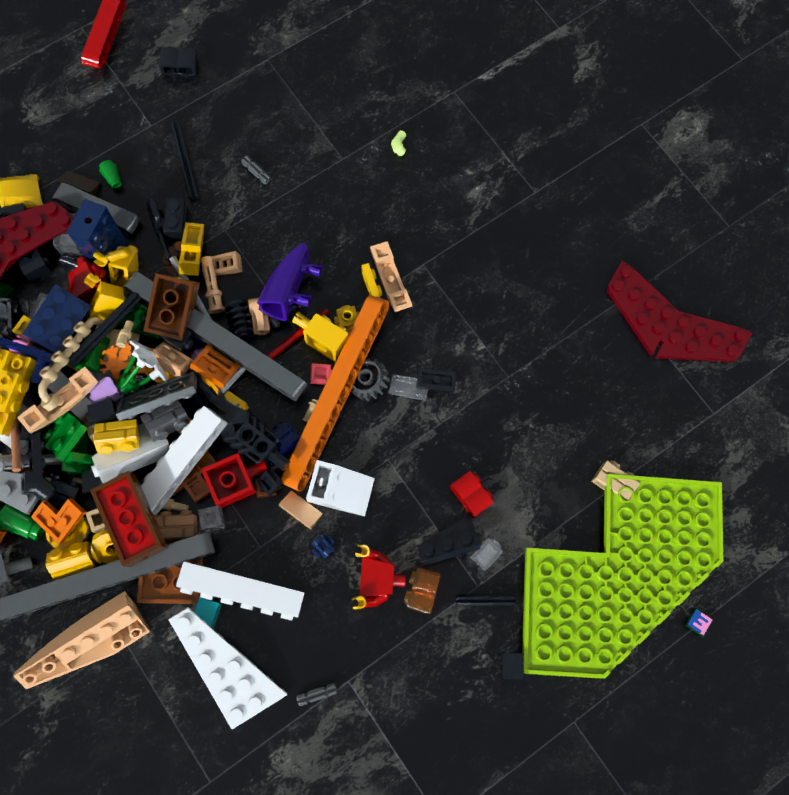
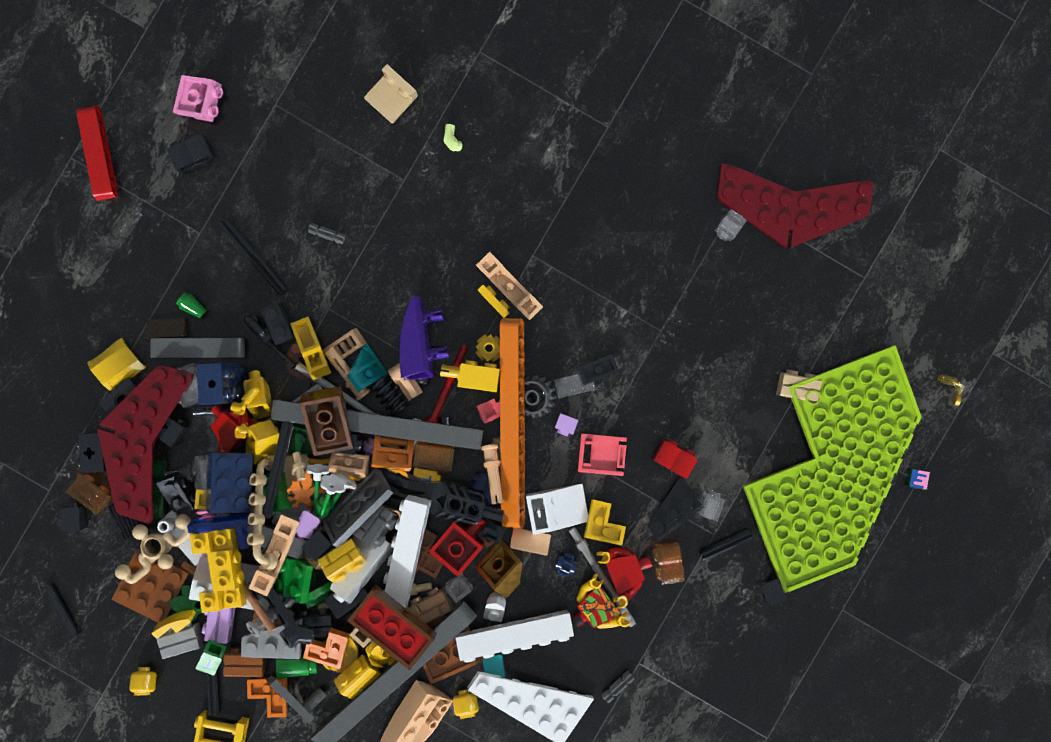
camera: 15 degrees left, 15 degrees up
(159, 639) = (465, 704): none -> yellow head
(208, 25) = (198, 98): none -> bright pink plate
(229, 288) = (365, 369): none -> teal wing
(236, 556) = (495, 607): none -> white plate
(251, 388) = (433, 456): none -> clear orange brick
(260, 522) = (501, 569): none -> pearl gold slope
(299, 418) = (492, 464): none -> light nougat pin
(334, 601) = (598, 607): none -> torso
(347, 537) = (582, 545): none -> light grey bar
(366, 89) = (391, 95): none -> tan bracket
(371, 525) = (598, 526): none -> yellow plate
(384, 416) = (566, 424): none -> lavender plate
(408, 462) = (605, 454): none -> coral container
(609, 313) = (730, 225): none -> clear brick
(769, 550) = (958, 389): none -> clear yellow piece

